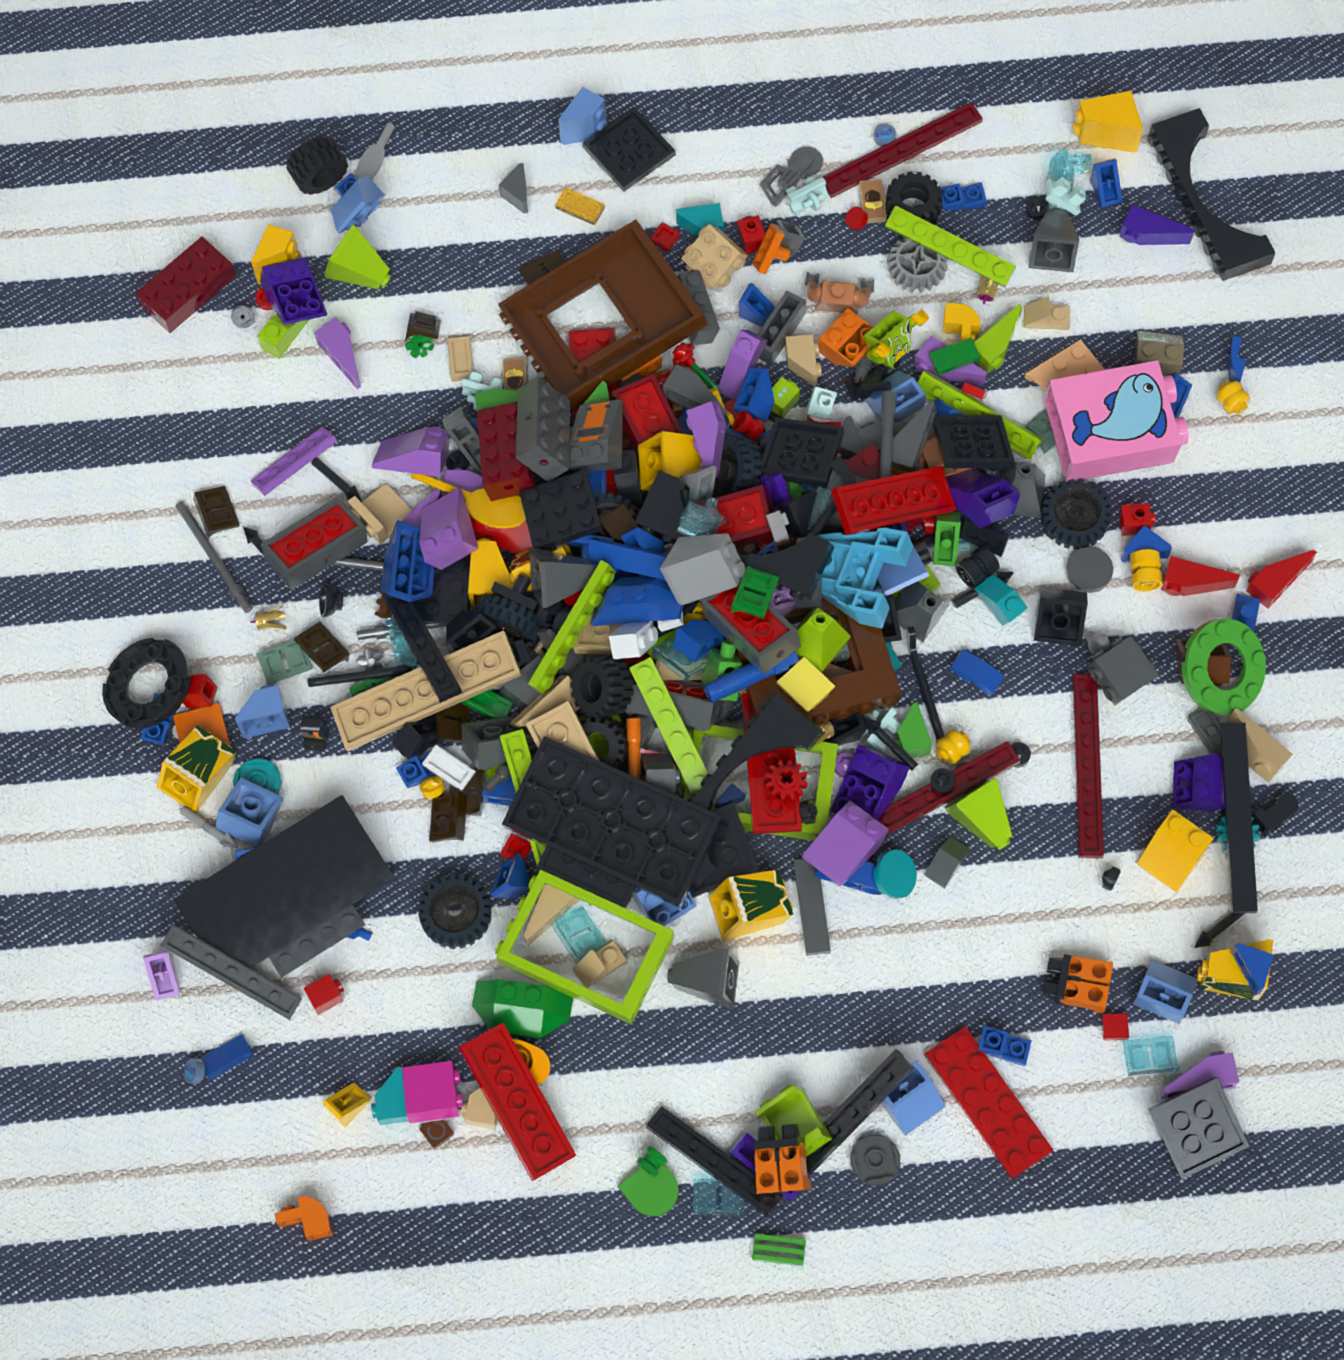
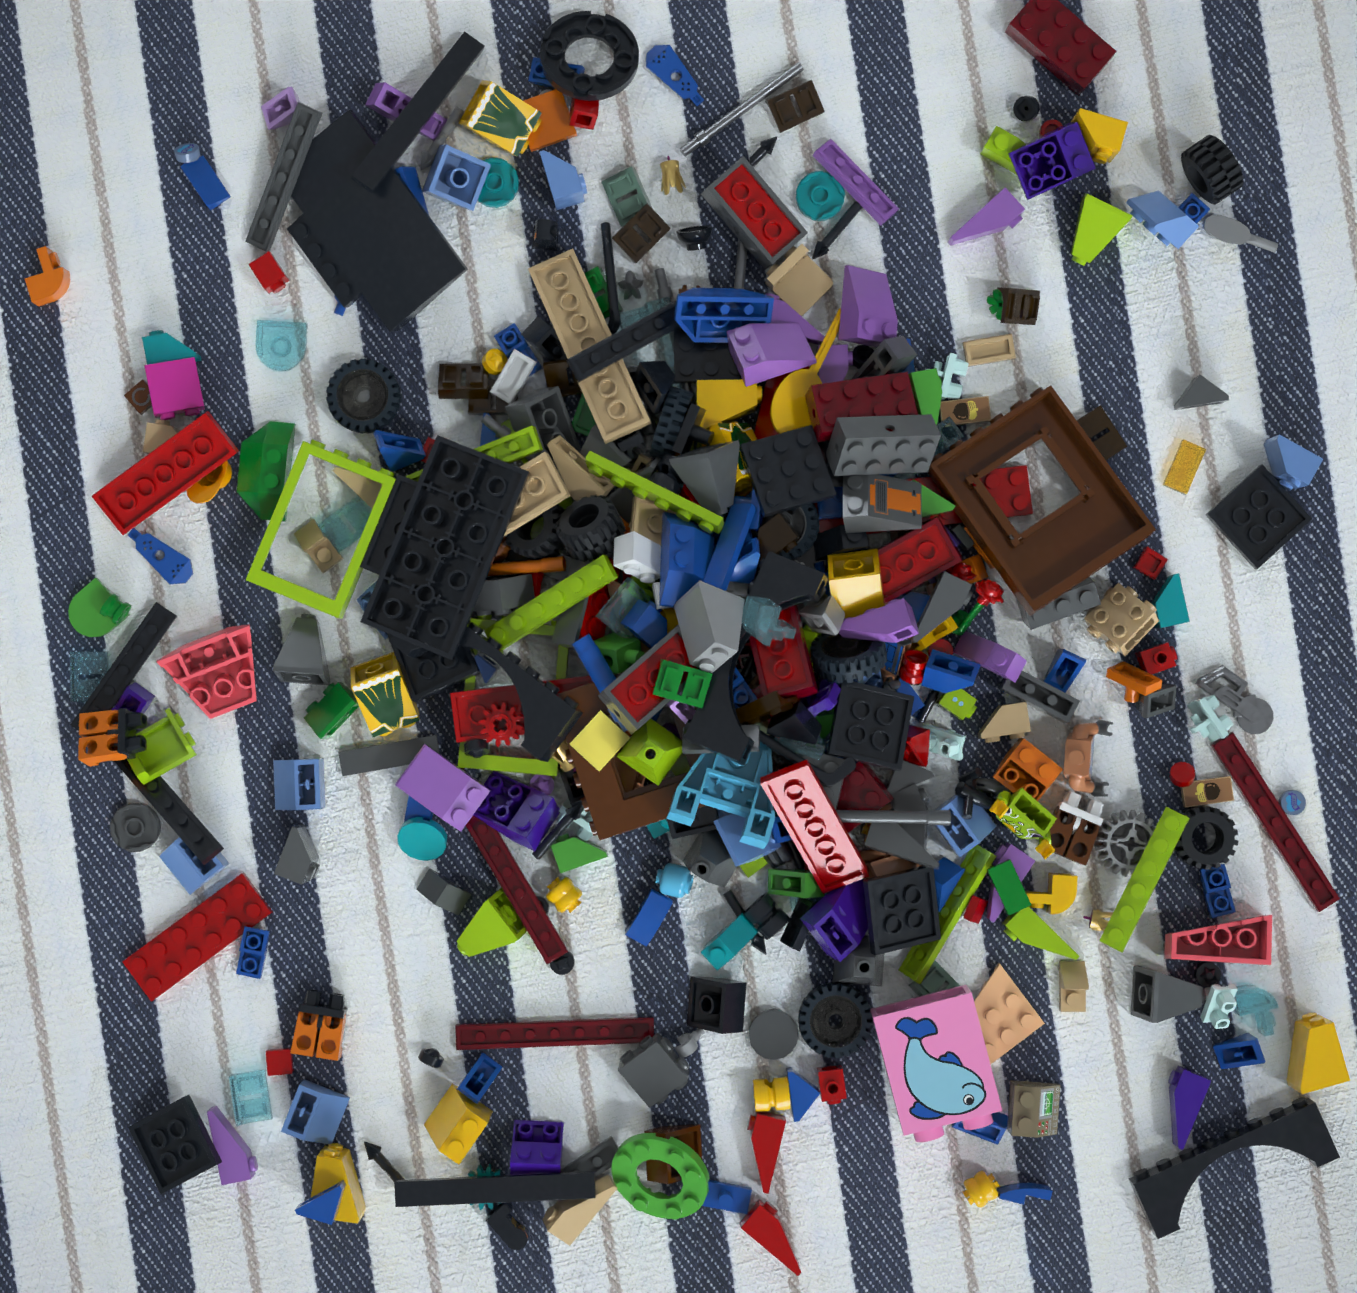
camera: 80 degrees right, 20 degrees up
(163, 617) = (670, 65): none -> blue piece
(177, 859) = (391, 102): none -> medium lavender slope
(183, 838) = (417, 112): none -> black tile
(302, 493) = (819, 196): none -> teal tile
(346, 1103) = (161, 305): yellow slope -> none
(395, 991) = (281, 343): none -> clear light blue tile
(603, 1110) = (168, 563): none -> blue piece
(717, 1065) = (215, 670): none -> coral wedge
(764, 952) = (331, 710): none -> green slope
(783, 1240) = (42, 737): bright green tile -> none
(837, 990) = (299, 784): none -> medium blue slope
(903, 300) = (1075, 829): none -> reddish brown hips
(908, 990) = (298, 857): none -> dark grey slope
(923, 684) = (630, 863): black piece -> none
(941, 646) = (674, 880): none -> medium azure head
(942, 781) = (520, 884): black tile -> none
(1008, 186) = (1229, 942): none -> coral wedge
(1131, 834) = (479, 1078): none -> blue slope

